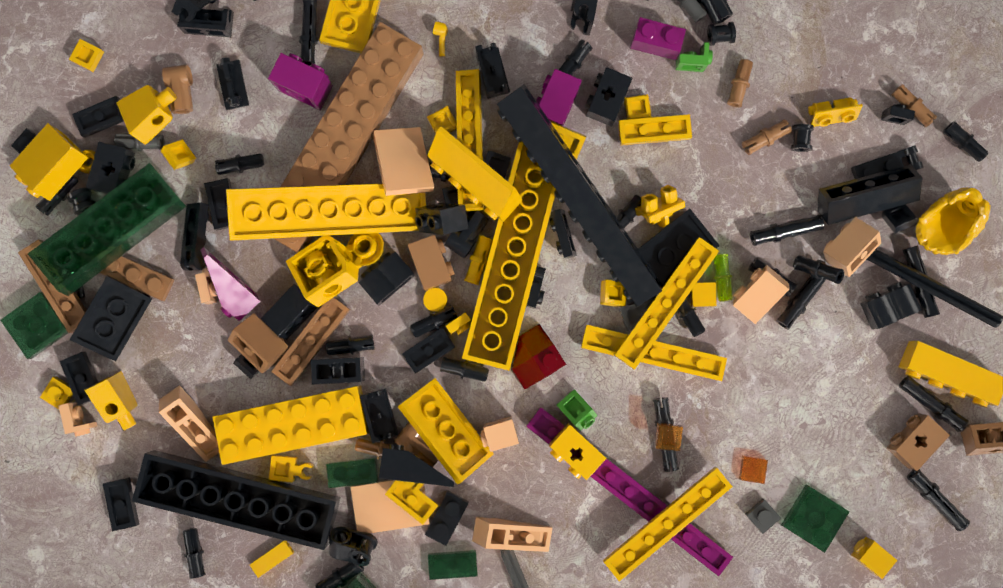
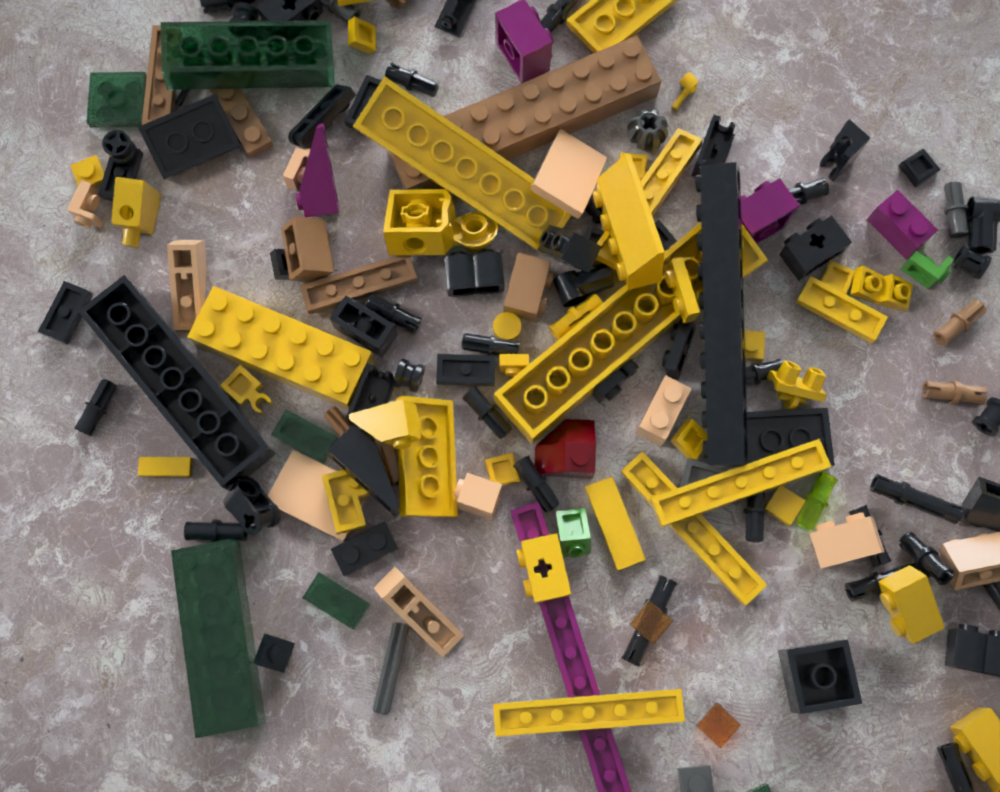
camera: 40 degrees right, 10 degrees down
(61, 362) = (116, 140): none -> black wheel
(288, 313) = (357, 243): black hinge -> none
(393, 381) = (409, 375): none -> black wheel
(408, 430) = (390, 423): none -> yellow slope
(429, 82) = (647, 129): none -> dark grey piece
(501, 401) = (501, 469): none -> yellow tile
(531, 395) = (536, 484): none -> black axle
(532, 192) = (685, 301): none -> yellow plate
(582, 287) = (663, 410): none -> light nougat brick
(600, 385) = (614, 523): none -> yellow tile
(612, 196) = (754, 345): none -> yellow plate
(672, 95) = (880, 289): none -> yellow slope
(798, 395) = (819, 676): none -> black brick
(827, 307) = (910, 604): none -> yellow brick

